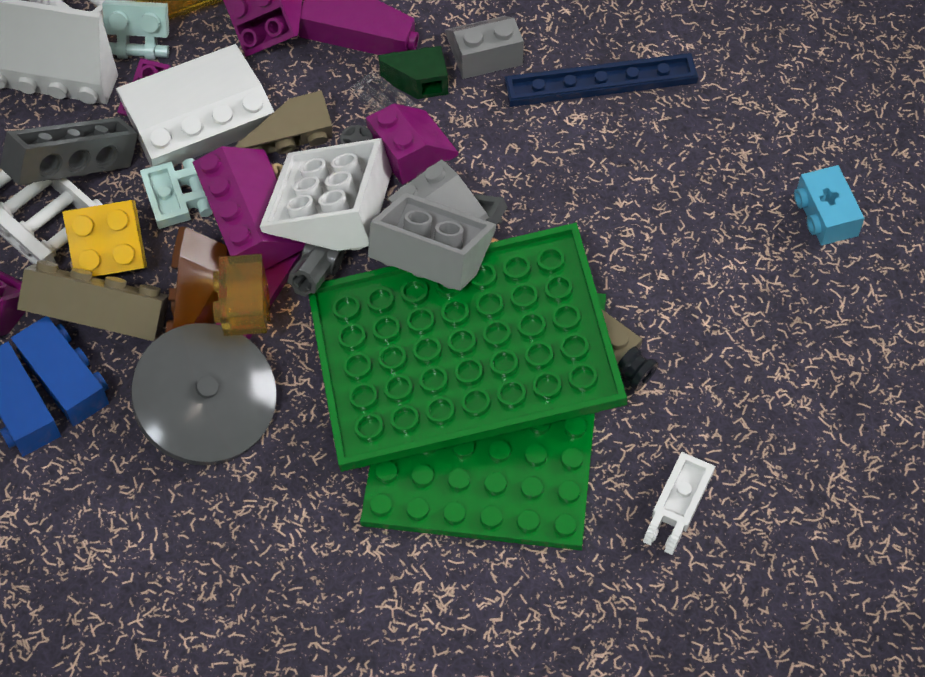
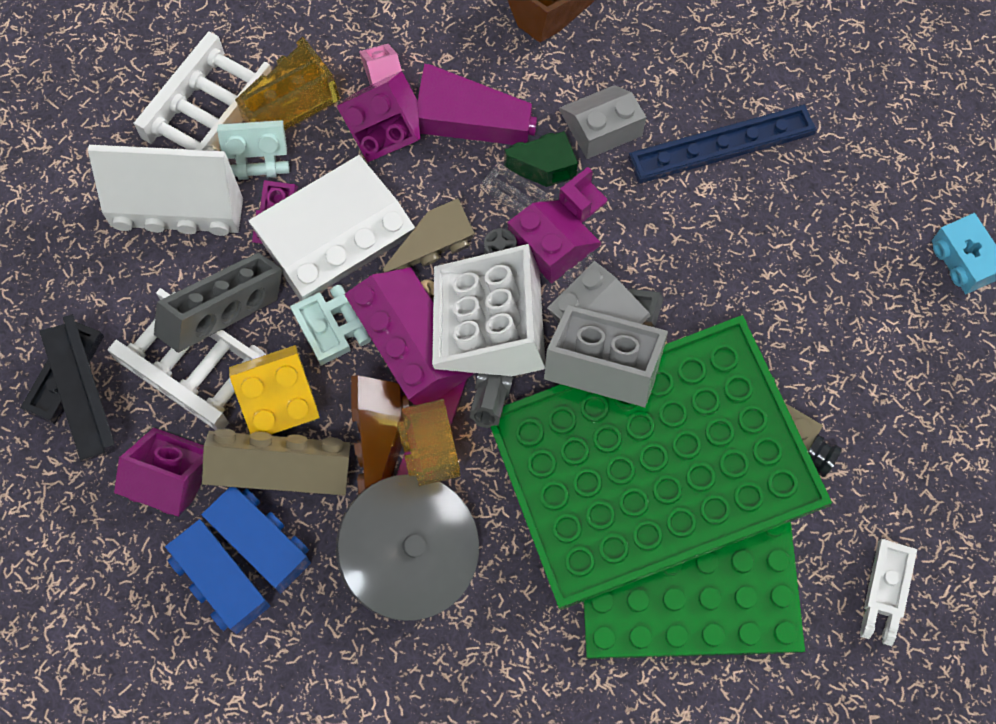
camera: 10 degrees left, 10 degrees up
(448, 108) = (582, 196): none -> magenta panel

